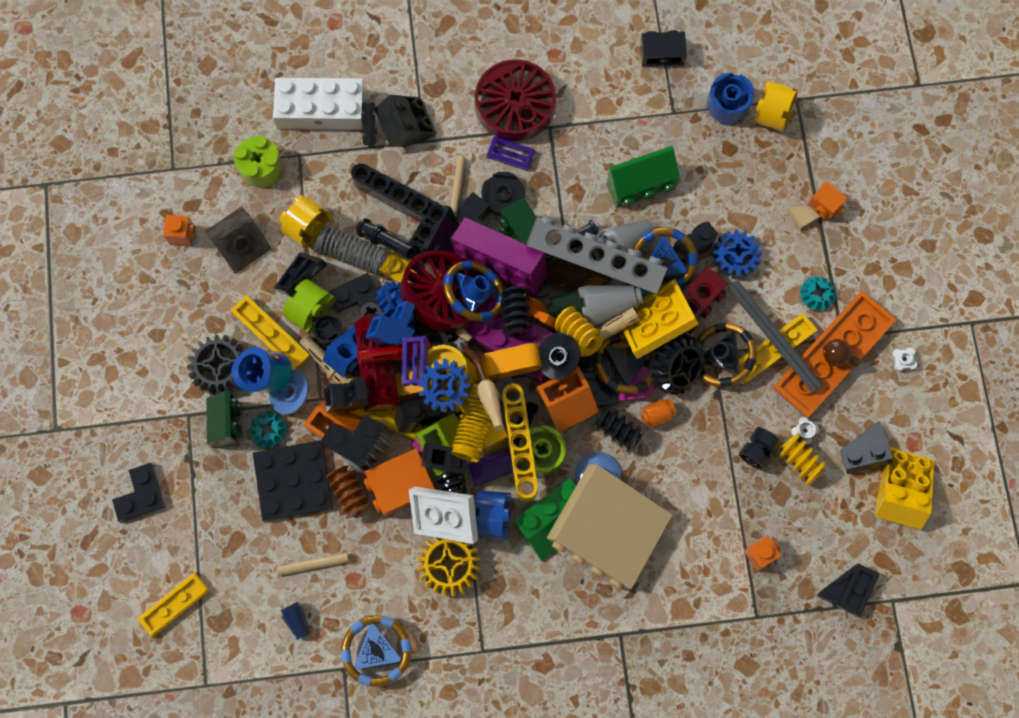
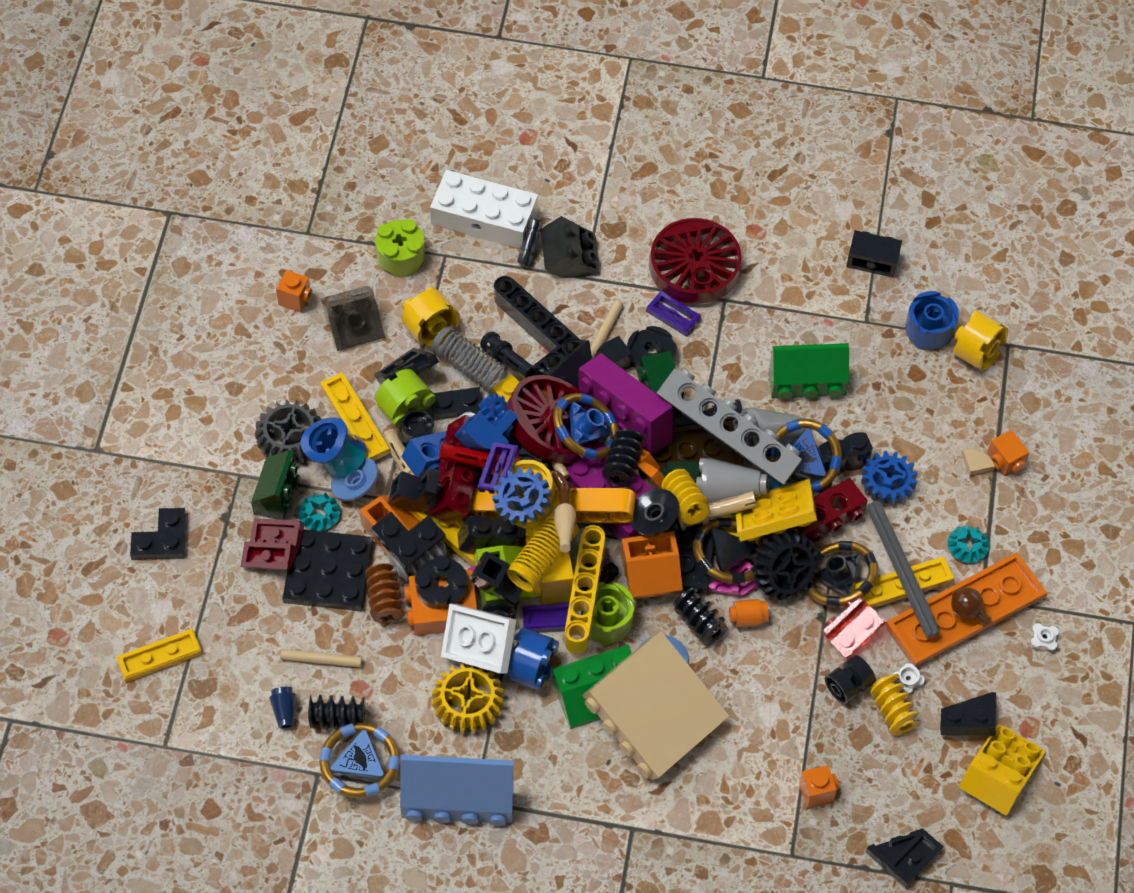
camera: 15 degrees right, 15 degrees down
(238, 475) = (272, 544): none -> dark red slope
(342, 613) = (335, 712): none -> black piece
(382, 475) = (441, 596): none -> black plate
(468, 658) = (456, 789): none -> medium blue slope
(749, 401) = (853, 626): none -> clear red bracket

